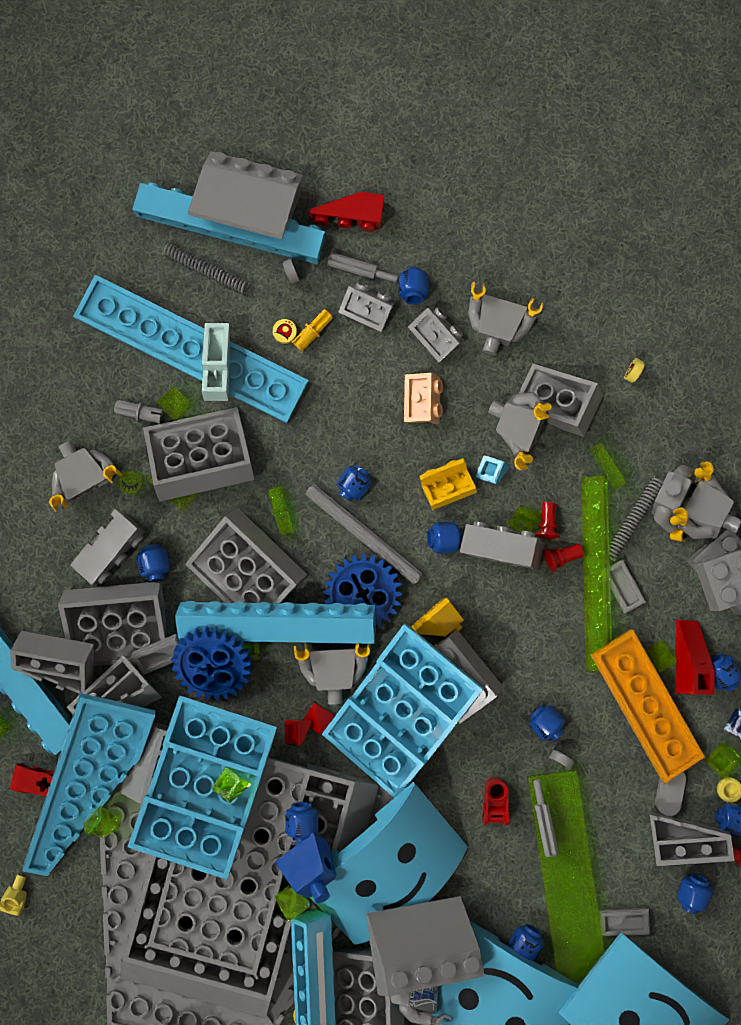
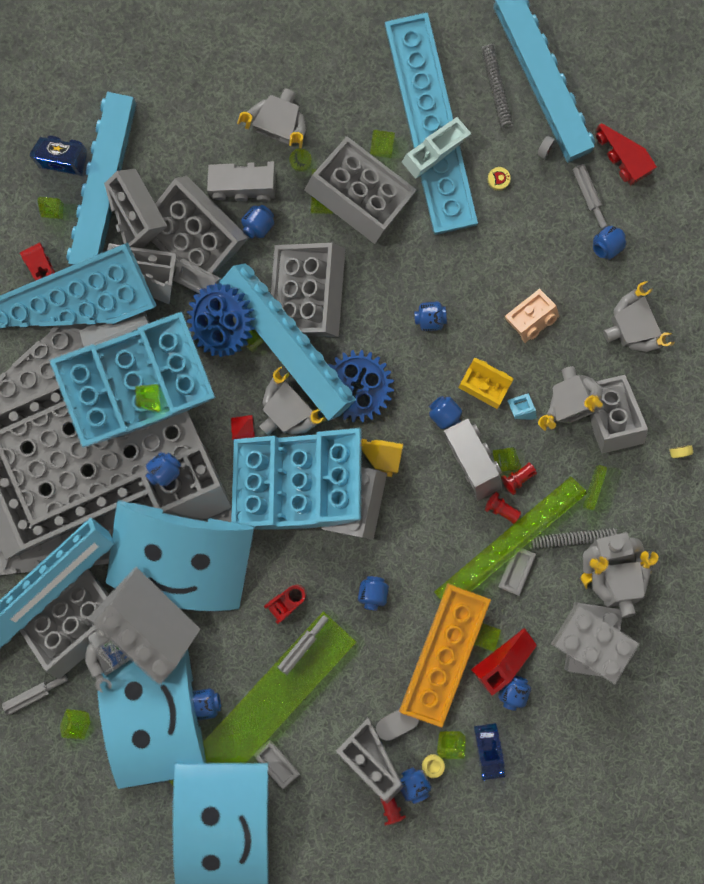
camera: 55 degrees right, 0 degrees up
(101, 823) = (48, 334): clear neon green slope -> none
(138, 411) = (355, 123): light grey axle -> none
(246, 195) = (573, 69): light grey slope -> none
(280, 511) = (368, 281): clear neon green axle -> none
(291, 903) = (102, 508): clear neon green slope -> none
(296, 731) = (221, 419): red slope -> none
(309, 868) = (136, 498): blue torso -> none
(312, 330) = (516, 197): yellow axle -> none
(364, 534) = (400, 353): light grey axle -> none
(367, 306) = (566, 221): light grey bracket -> none
(436, 333) = (589, 287): light grey bracket -> none
(561, 759) = (355, 625): light grey tile -> none
(695, 893) = (338, 798): blue head -> none

